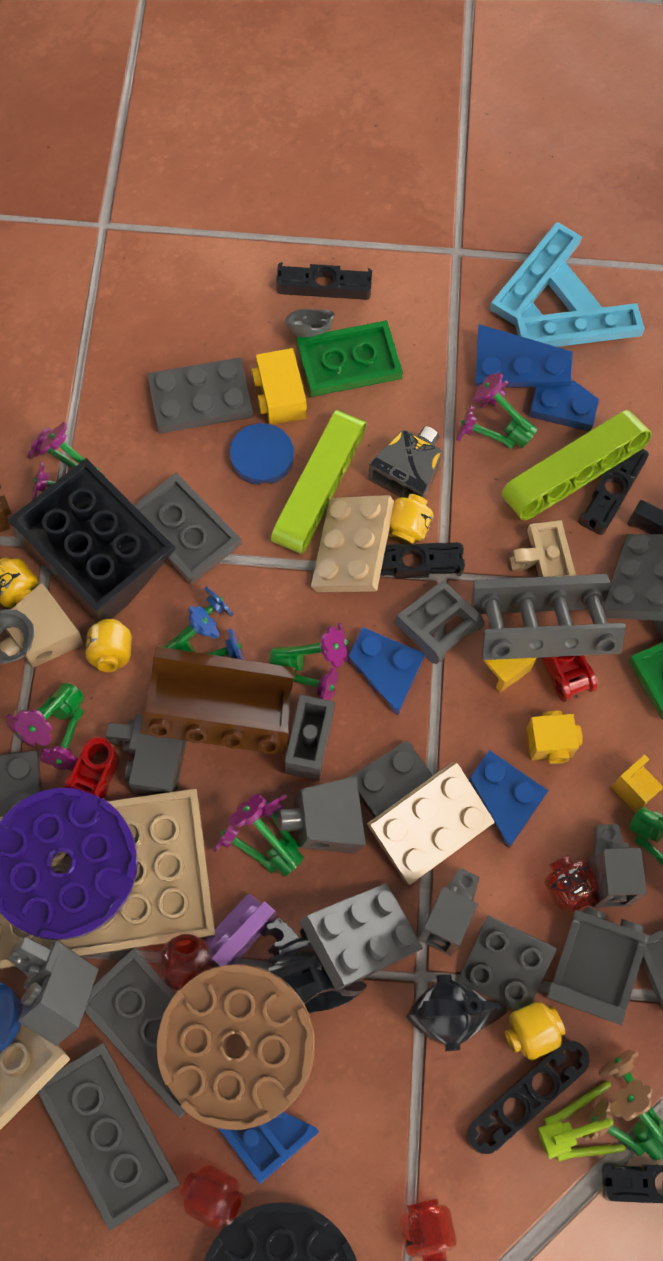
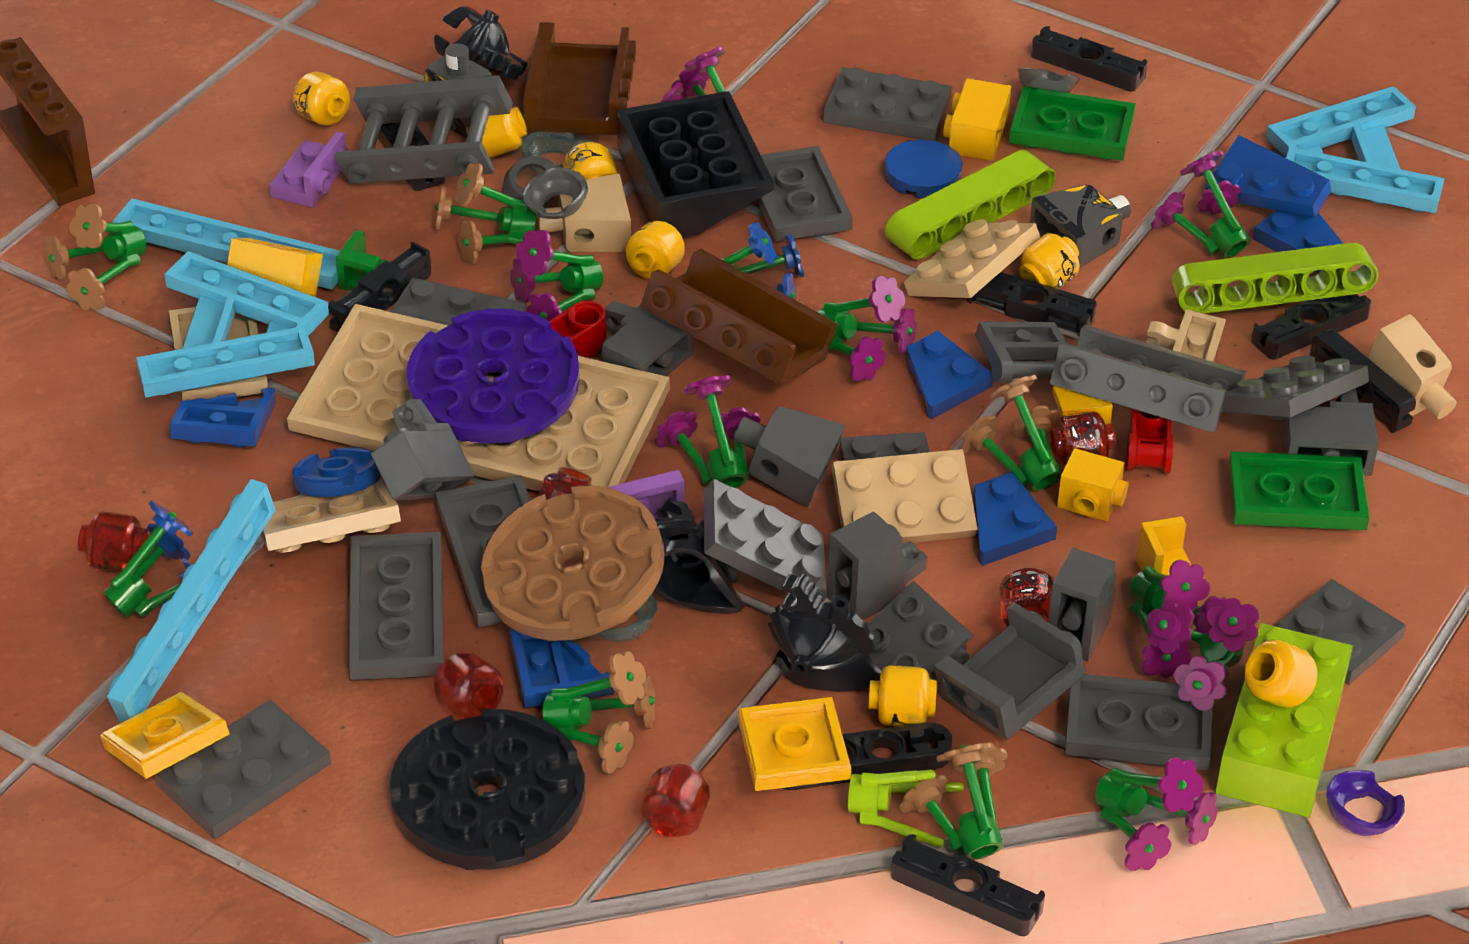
camera: 30 degrees right, 25 degrees down
(303, 1178) = (570, 711): none -> plant
(309, 737) = (819, 378): dark grey brick -> none
(488, 1132) = (794, 744): none -> yellow plate
(506, 734) = (1038, 463): none -> plant
(526, 696) = (1084, 432): none -> clear red head

